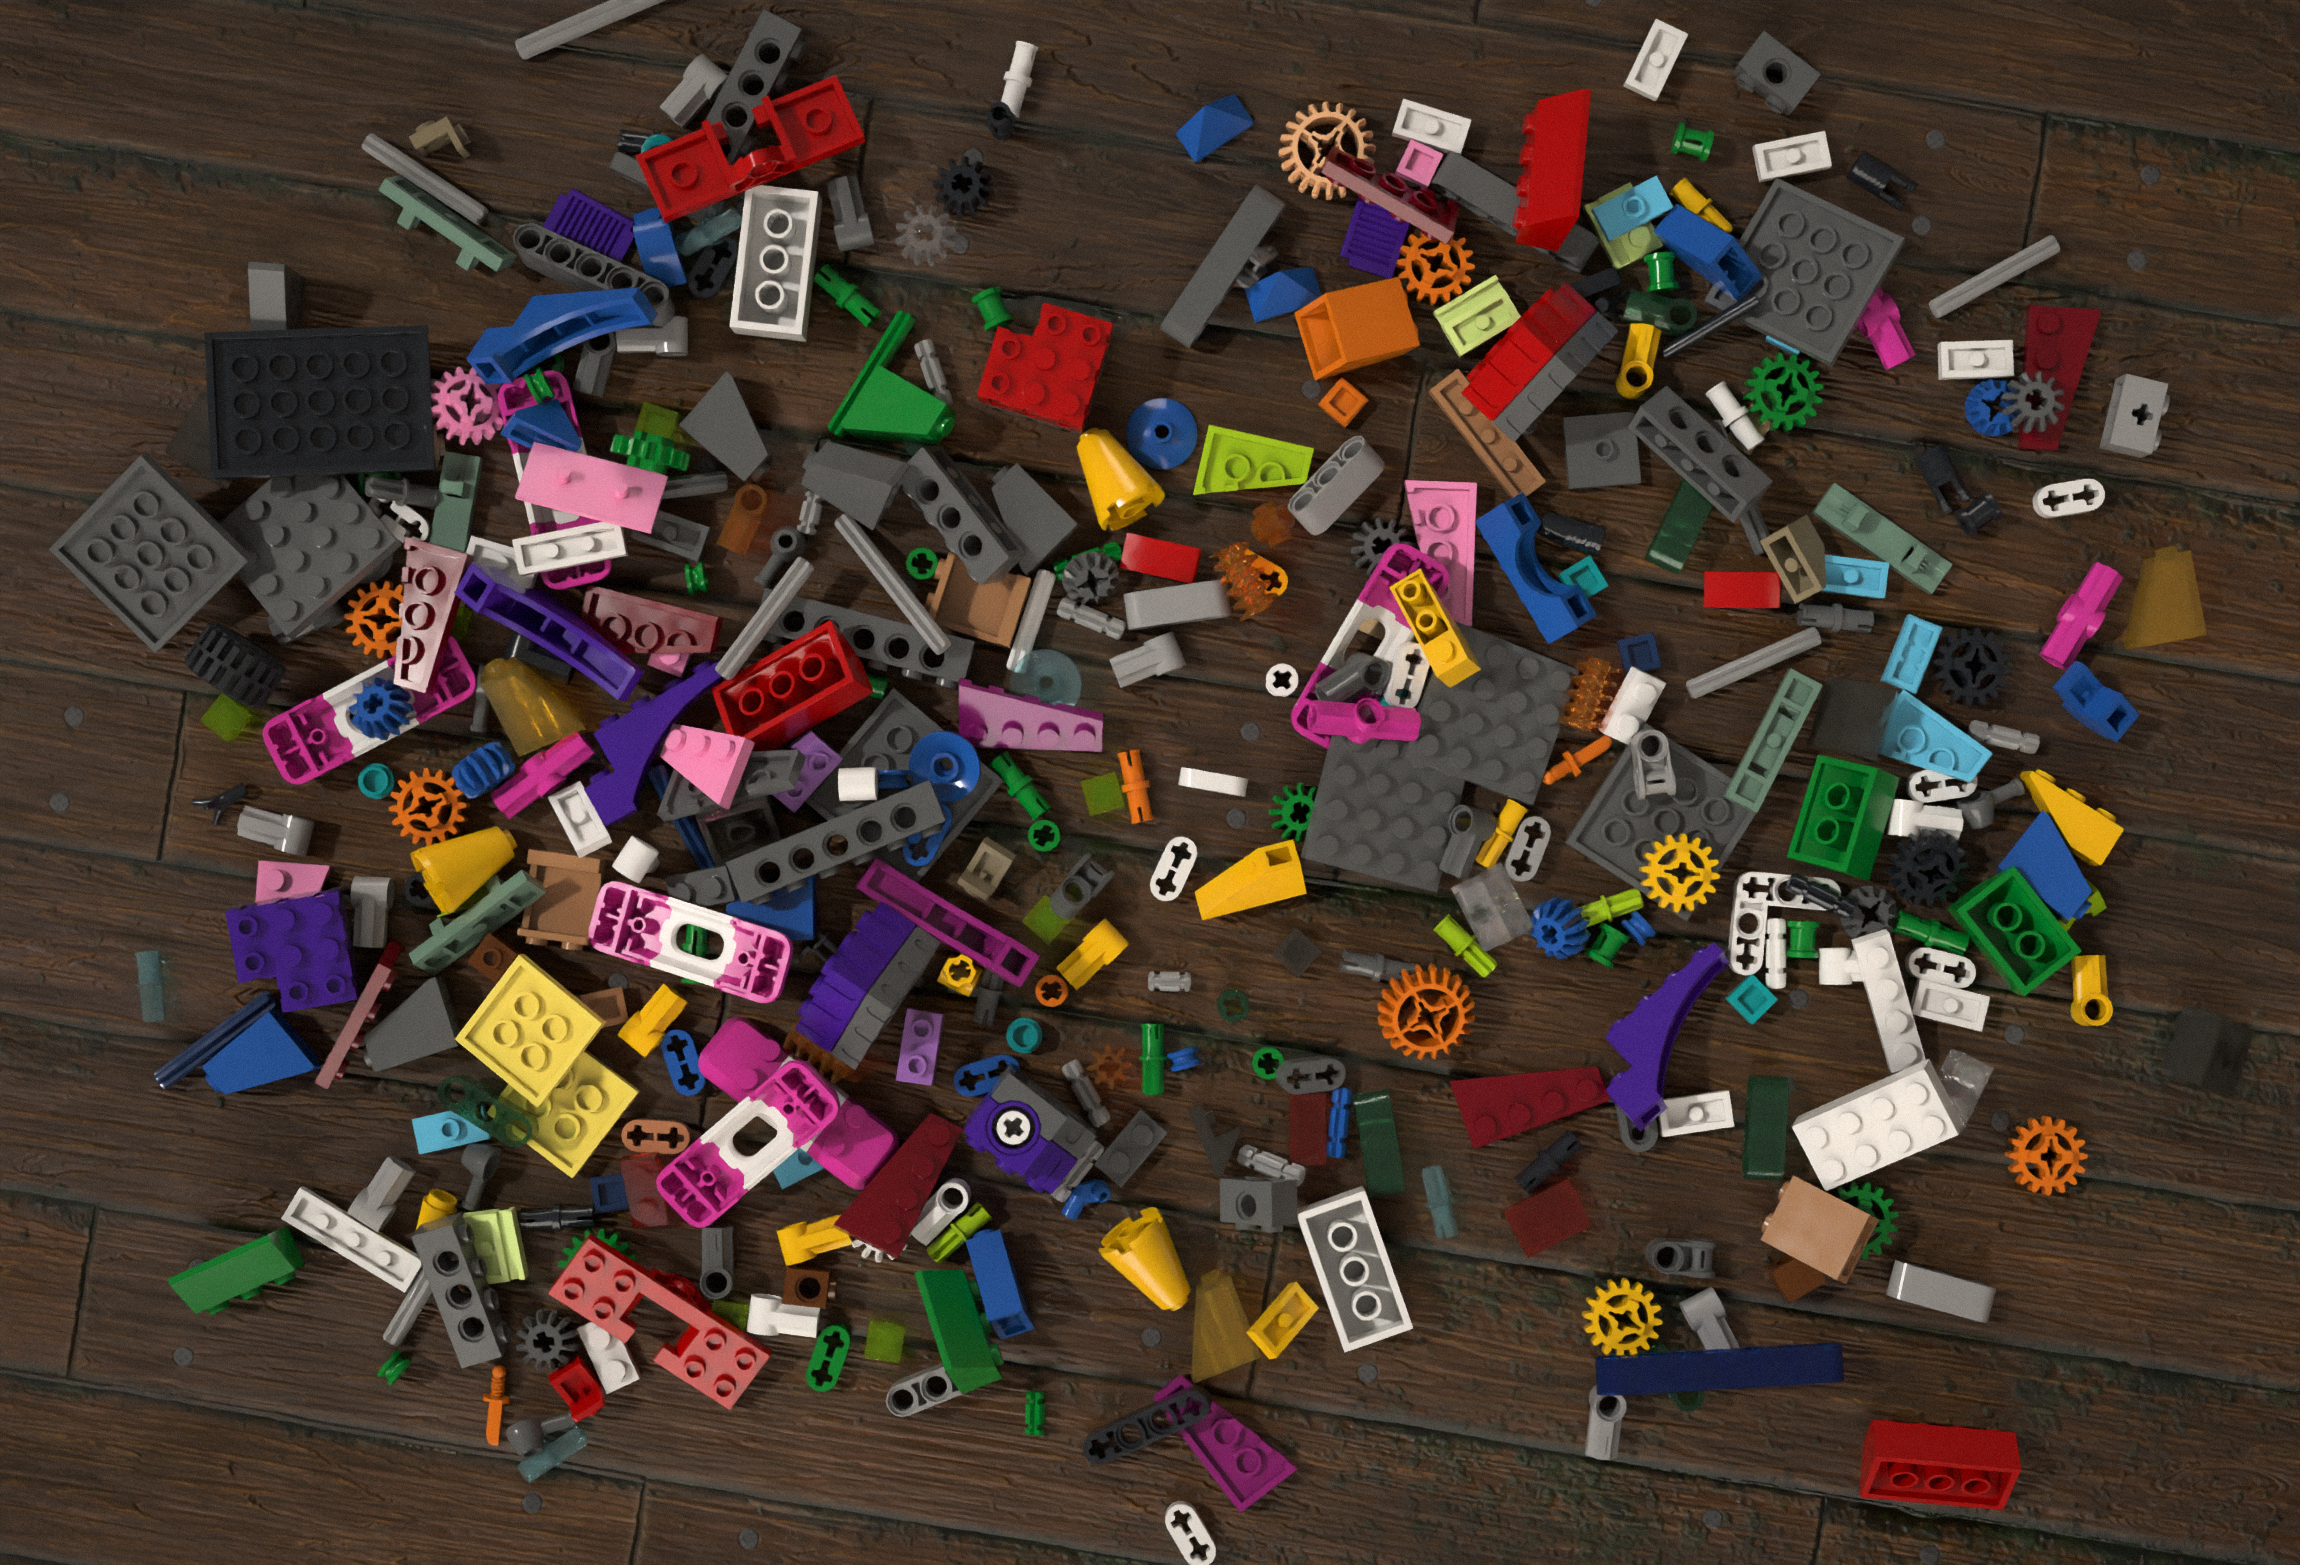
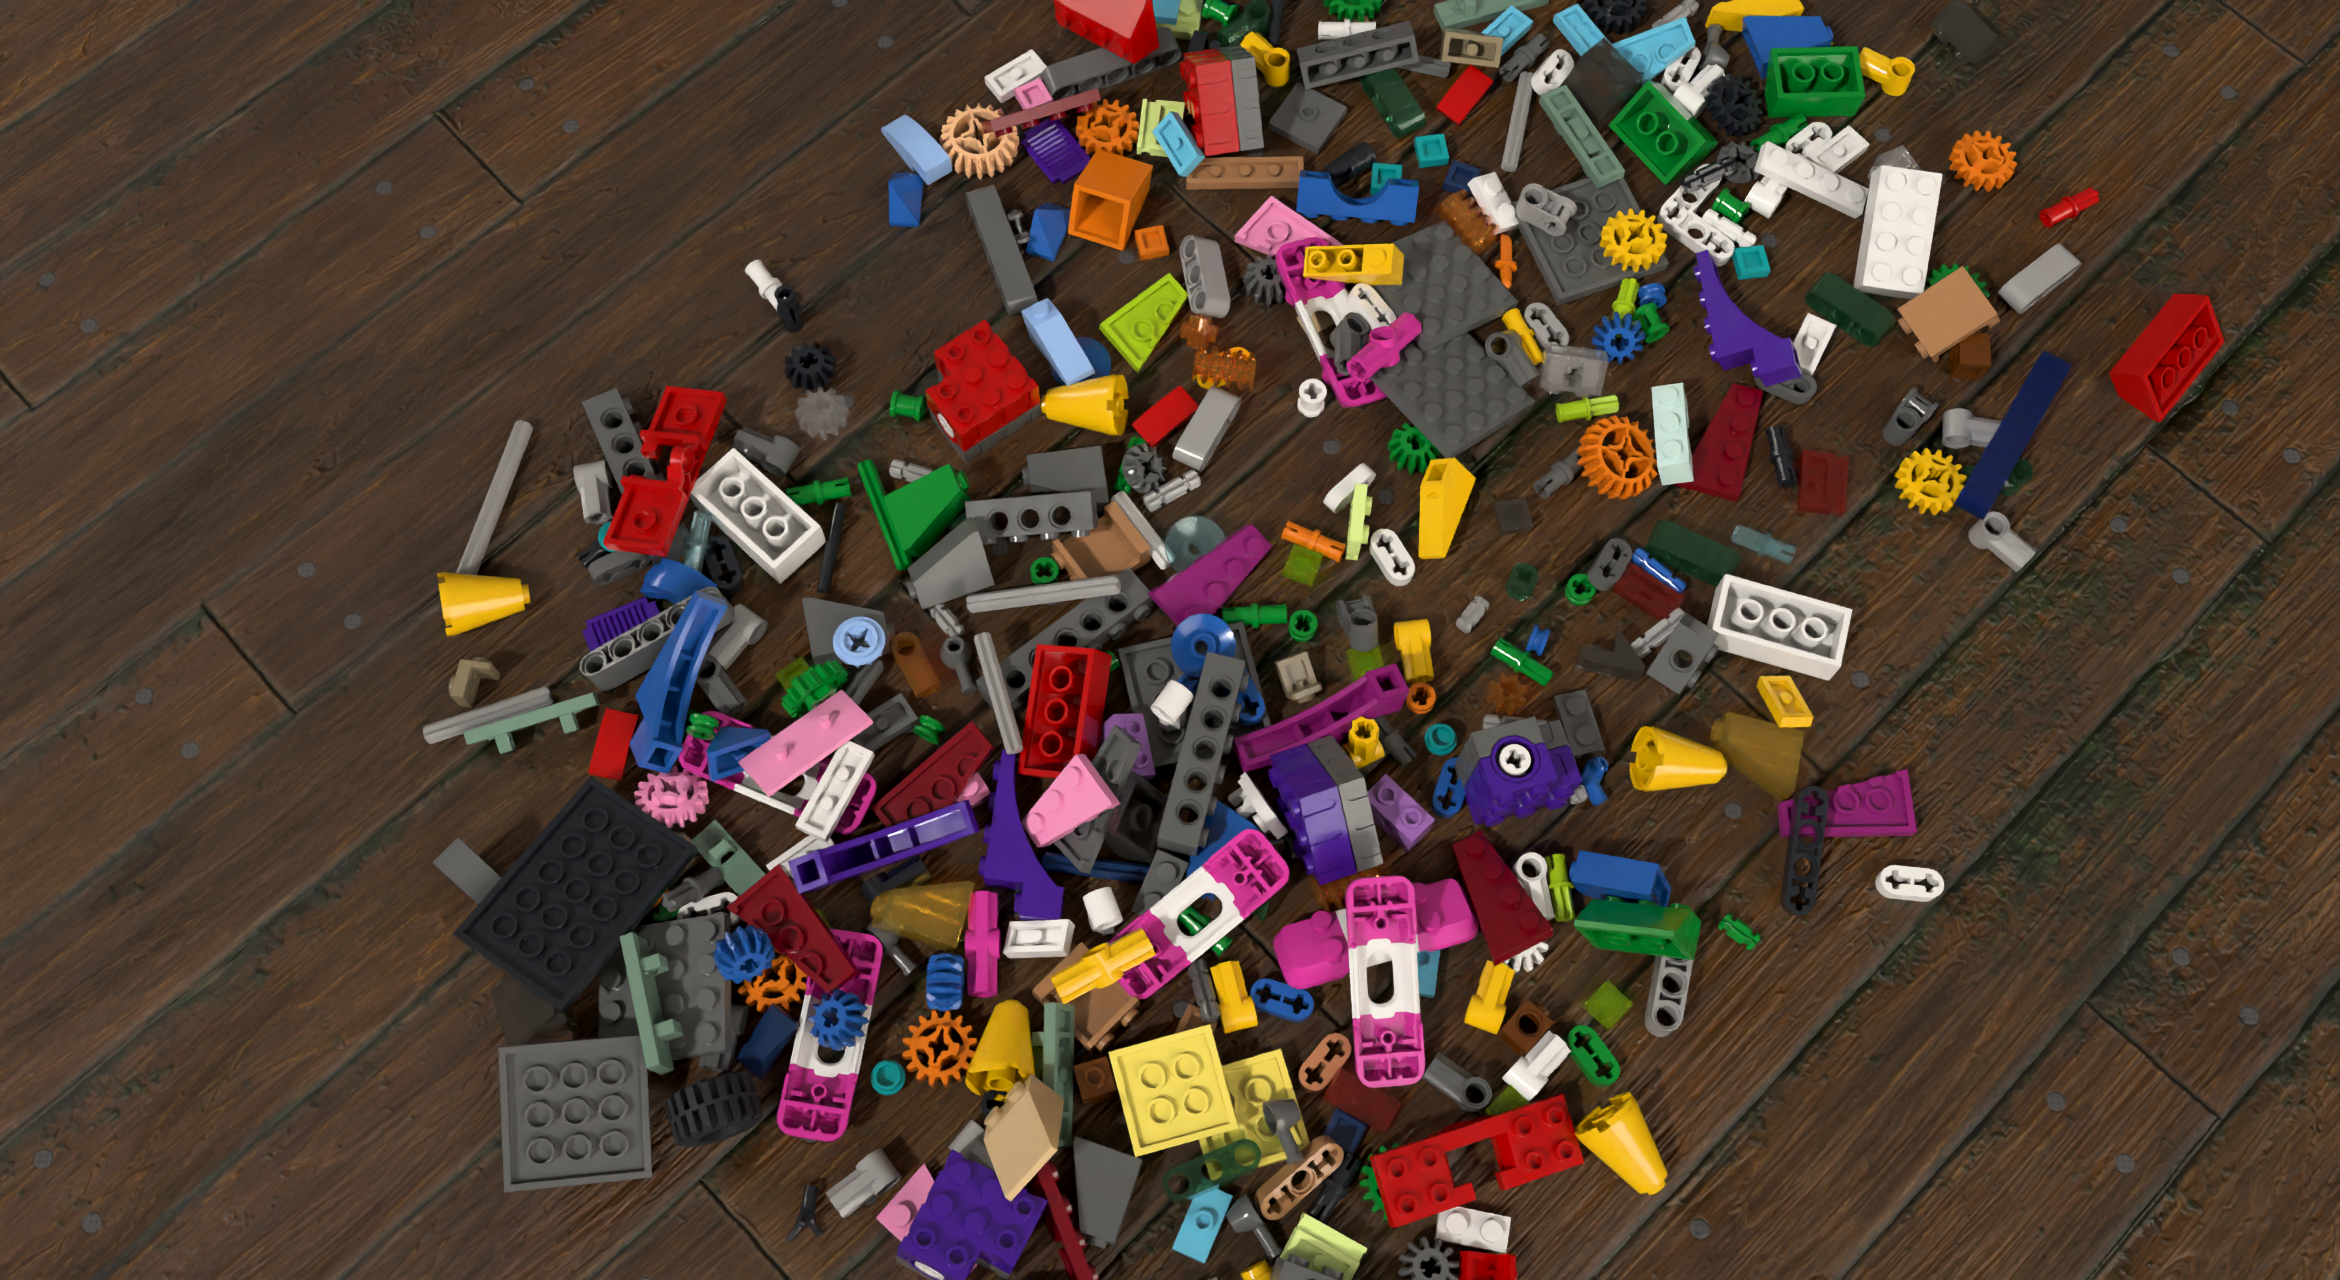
camera: 55 degrees left, 20 degrees down
(226, 717) = (746, 1160): clear neon green plate -> none
(274, 539) = (653, 1030): none -> sand green hinge
(329, 658) = (767, 1041): none -> dark blue slope
(370, 588) = (743, 954): none -> blue gear
(392, 941) = (1023, 1133): none -> tan slope
(478, 313) = (613, 744): none -> red slope
(513, 82) = (479, 599): none -> yellow cone
(574, 1188) = (1313, 1178): none -> medium nougat beam
(576, 1136) = (1280, 1117): none -> dark grey bar
(587, 895) = (1102, 965): none -> yellow piece
(638, 994) = (1204, 991): none -> dark grey axle
(707, 446) = (857, 628): none -> light blue gear
(765, 1431) = (1624, 1143): none -> yellow cone
(803, 351) = (831, 548): none -> black bar
(837, 921) = (1256, 802): none -> white plate
(1153, 402) = (1056, 342): none -> light blue slope
(1154, 658) = (1232, 466): light grey piece -> none
(1166, 824) = (1357, 531): none -> yellowish green plate
(1273, 95) = (918, 149): none -> light blue slope
(1460, 353) = (1178, 144): none -> medium azure plate
(1504, 1033) = (1671, 434): none -> light aqua arch
(1650, 601) = (1431, 150): none -> teal plate
(1836, 652) = (1548, 69): none -> white beam
(2054, 1272) = (2069, 207): none -> red axle

